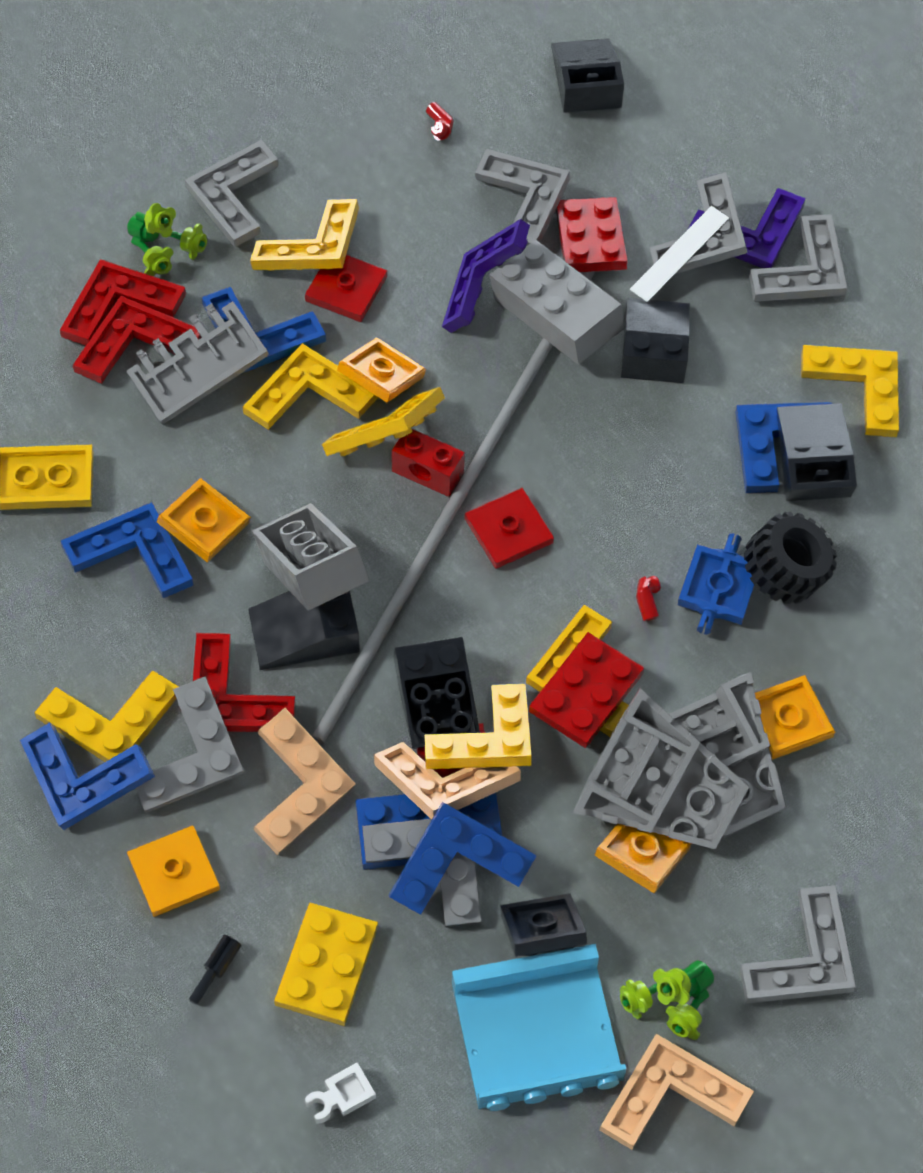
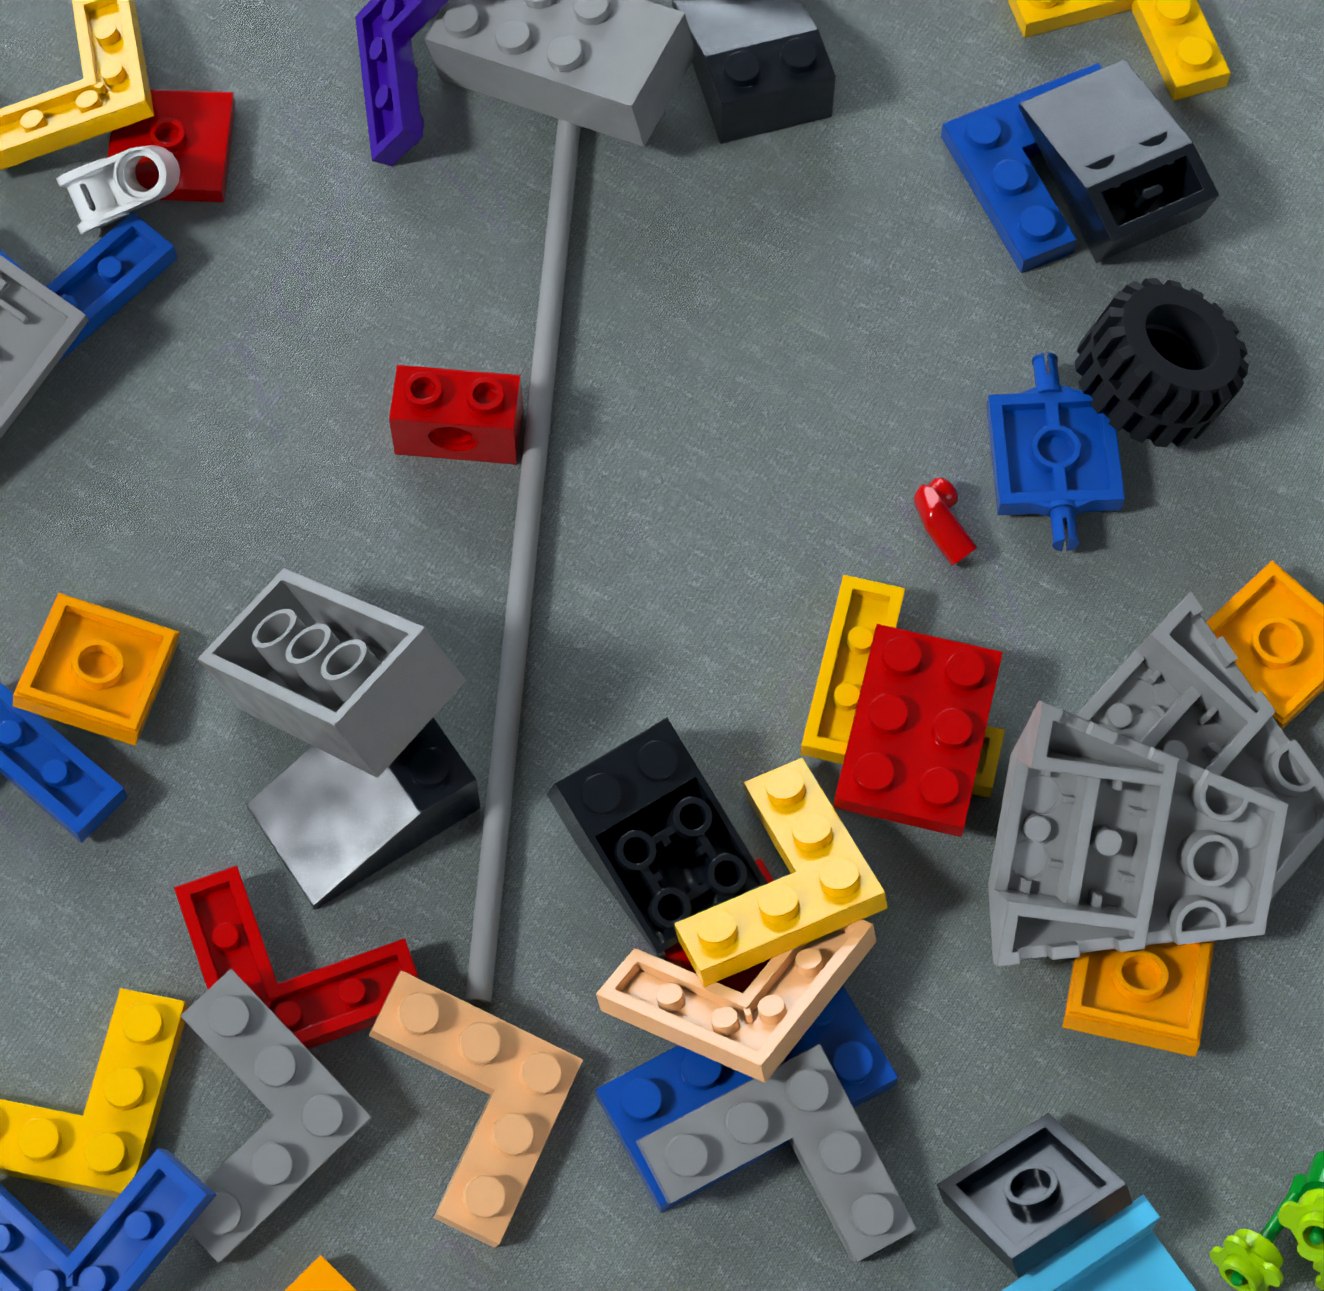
camera: 20 degrees left, 5 degrees up
(304, 370) = (177, 321): yellow plate -> none
(306, 296) = (109, 188): none -> white piece
(381, 369) = (301, 276): light orange plate -> none
(396, 424) = (381, 366): yellow plate -> none
(444, 837) = (799, 1103): blue plate -> none
(509, 528) = (648, 483): red plate -> none

